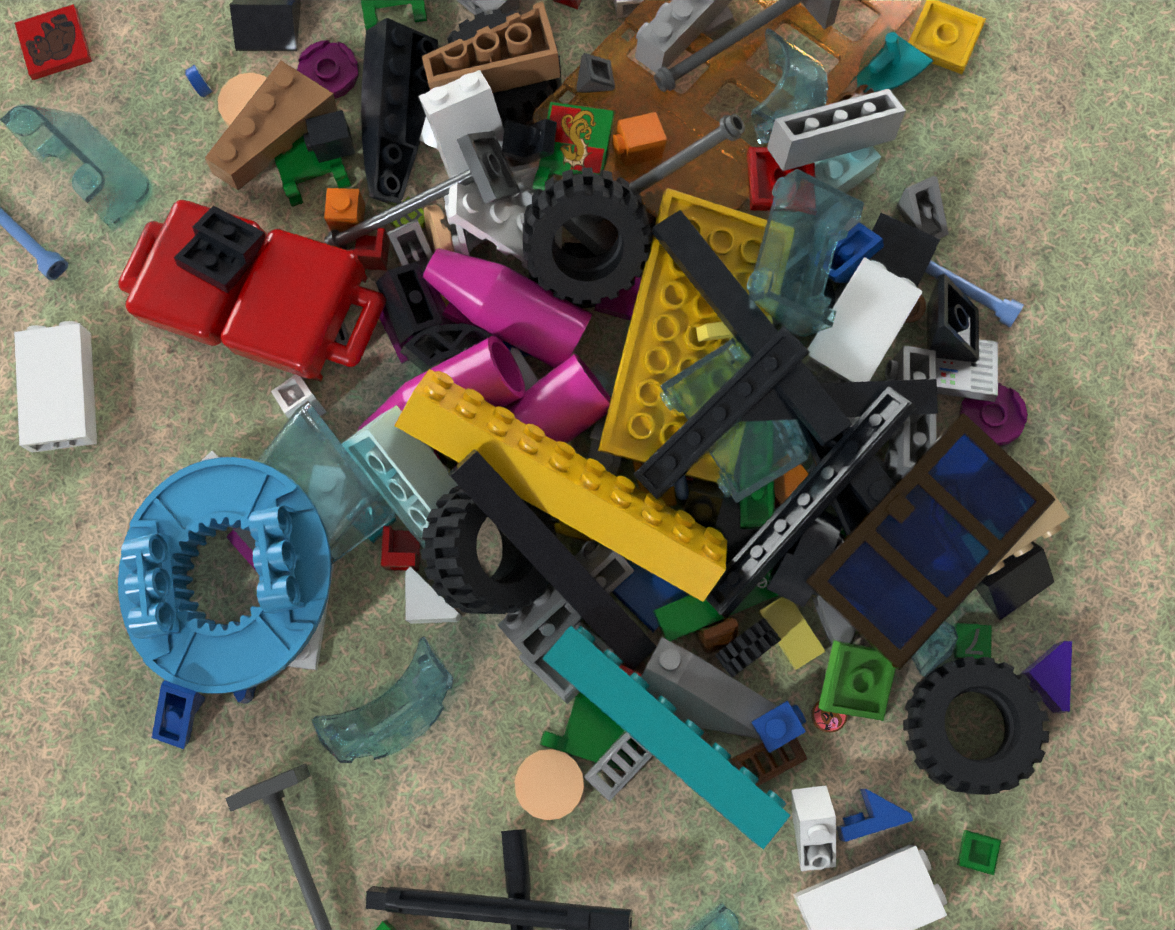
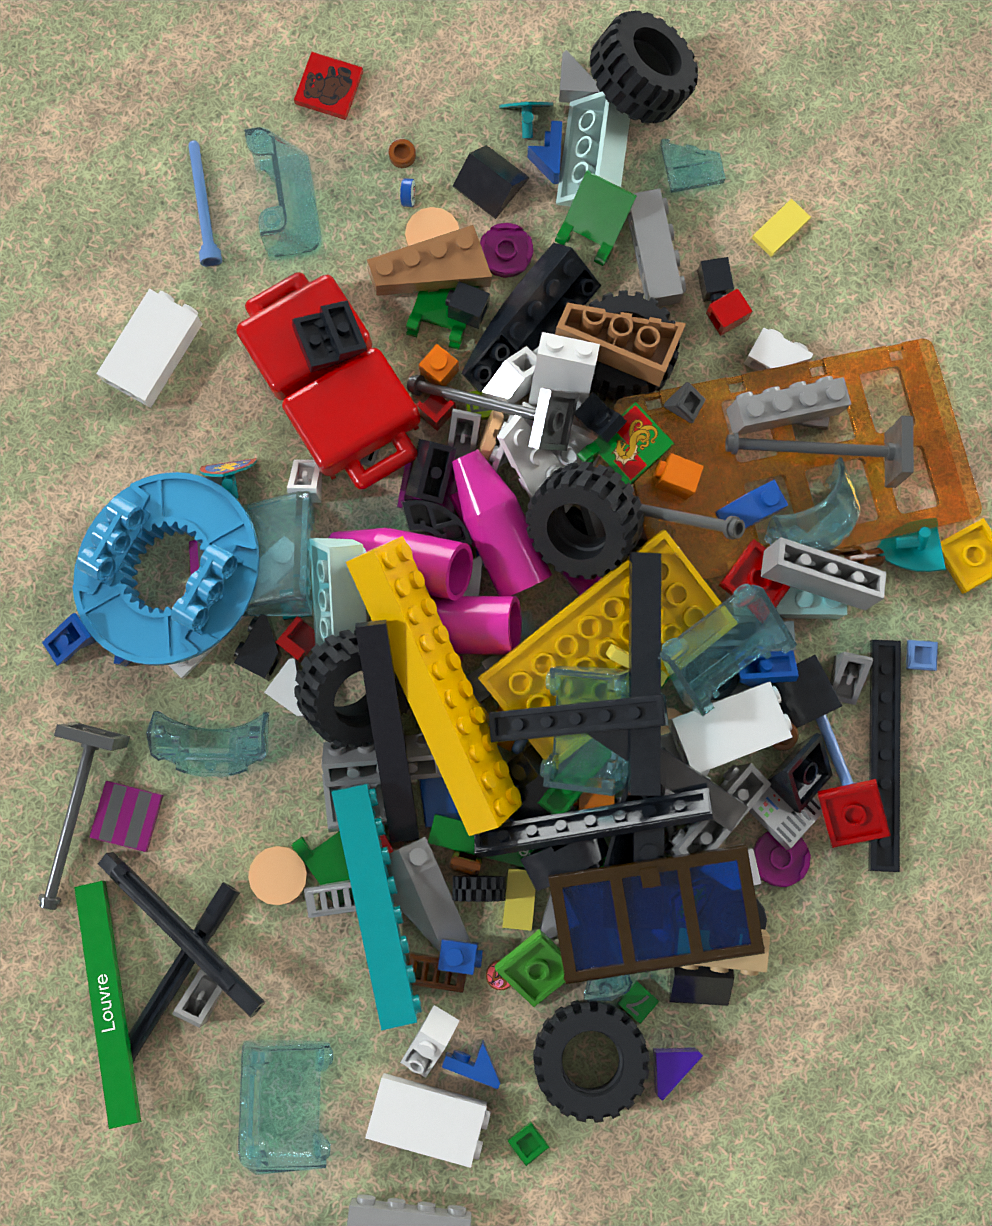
camera: 30 degrees right, 5 degrees up
(167, 53) = (402, 153): none -> dark orange tile
(216, 444) = (228, 471): none -> shield
(359, 841) = (126, 816): none -> tile
(372, 586) = (260, 651): none -> black slope
(421, 166) = (513, 377): none -> white slope
(732, 100) = (755, 505): none -> blue slope
(970, 150) = (921, 655): none -> medium blue tile
(1012, 261) = (885, 748): none -> black tile
(1026, 324) = (853, 813): none -> red tile

